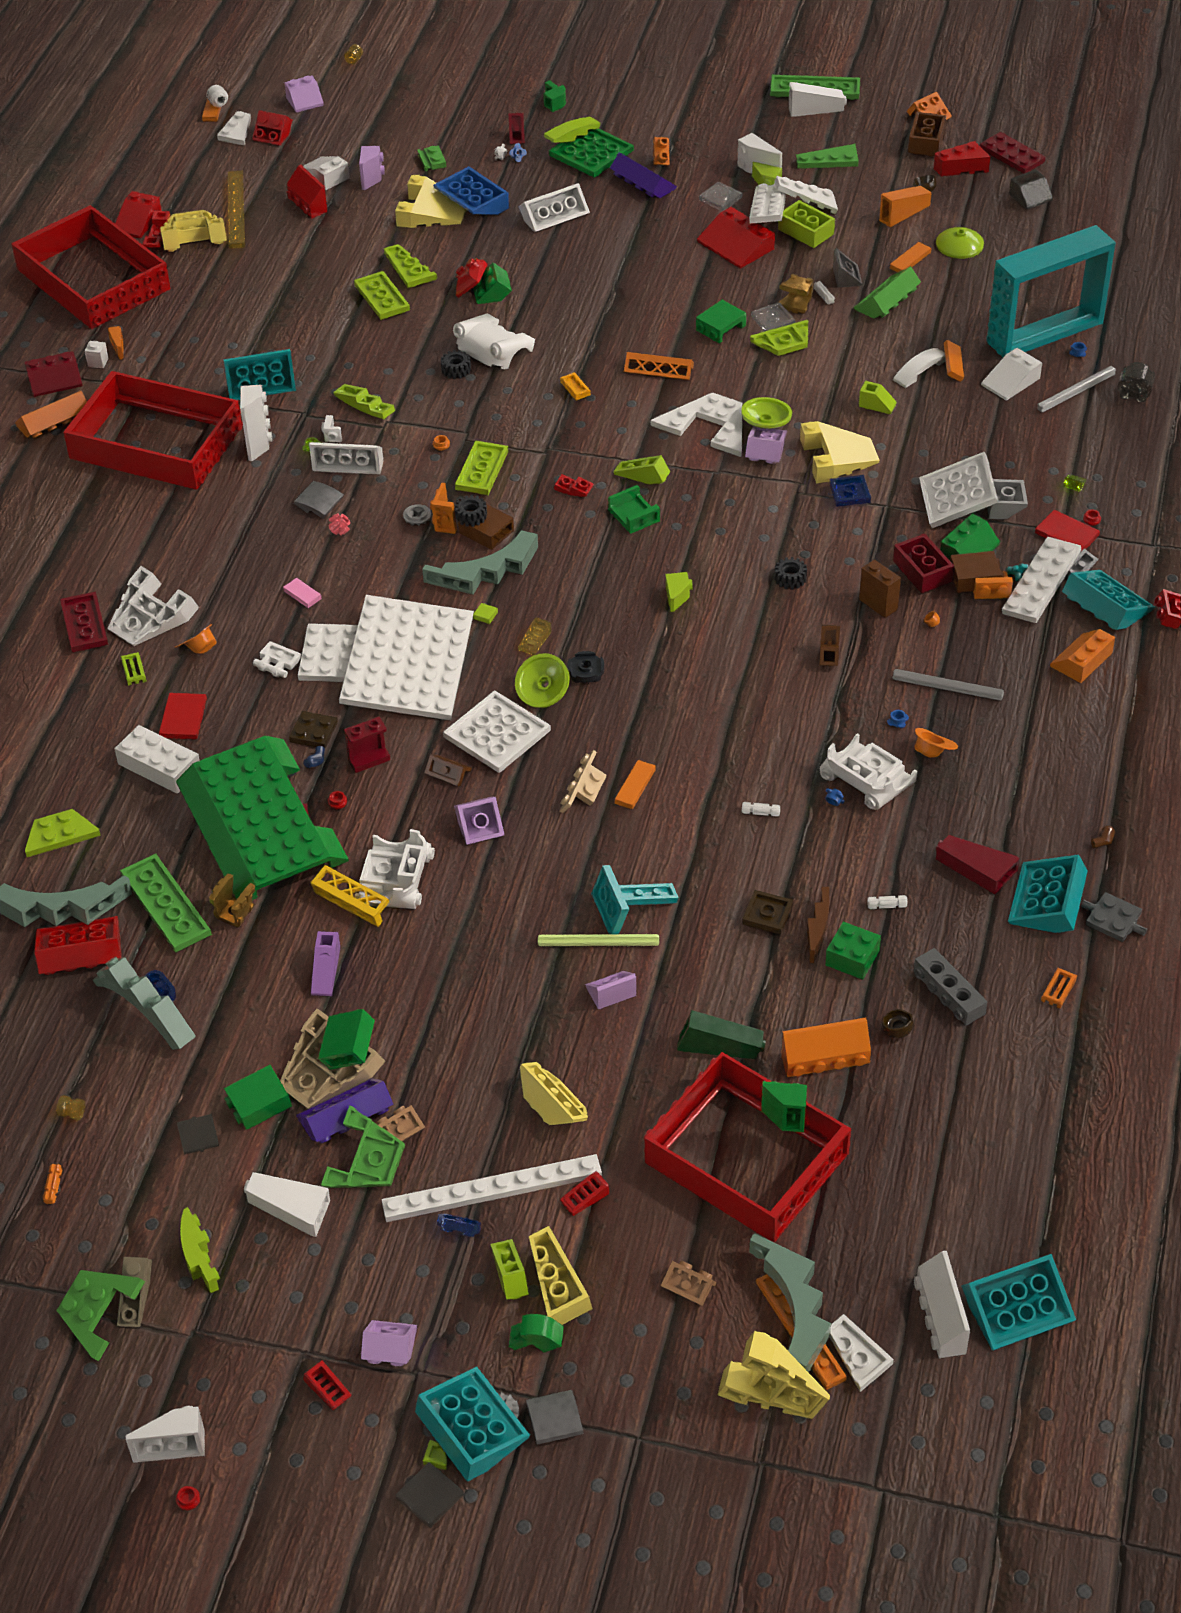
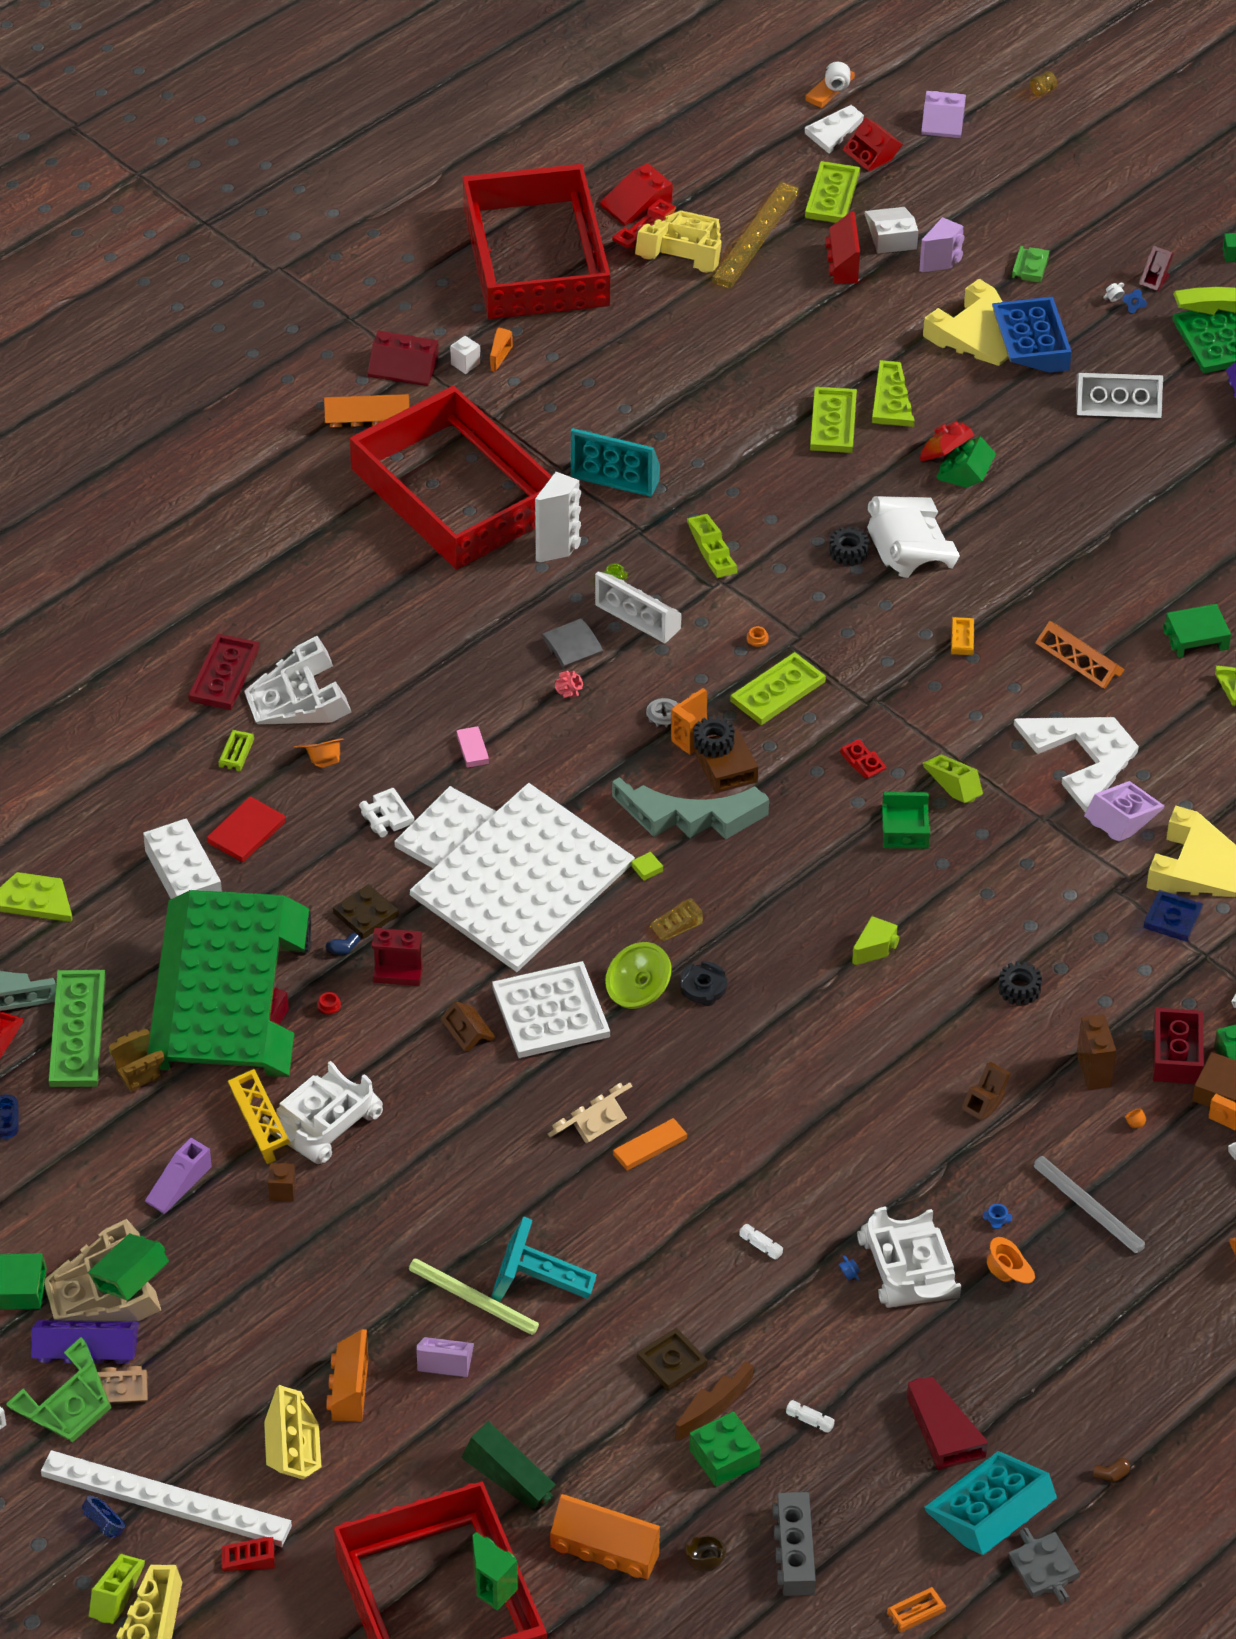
camera: 30 degrees right, 0 degrees up
(267, 165) = (832, 192): none -> lime plate
(331, 433) = (646, 564): white bracket -> none
(403, 931) = (281, 1182): none -> reddish brown brick
(479, 820) = (453, 1100): lavender slope -> none
(561, 1035) = (349, 1378): none -> orange slope
(766, 413) = (1150, 772): lime dish -> none

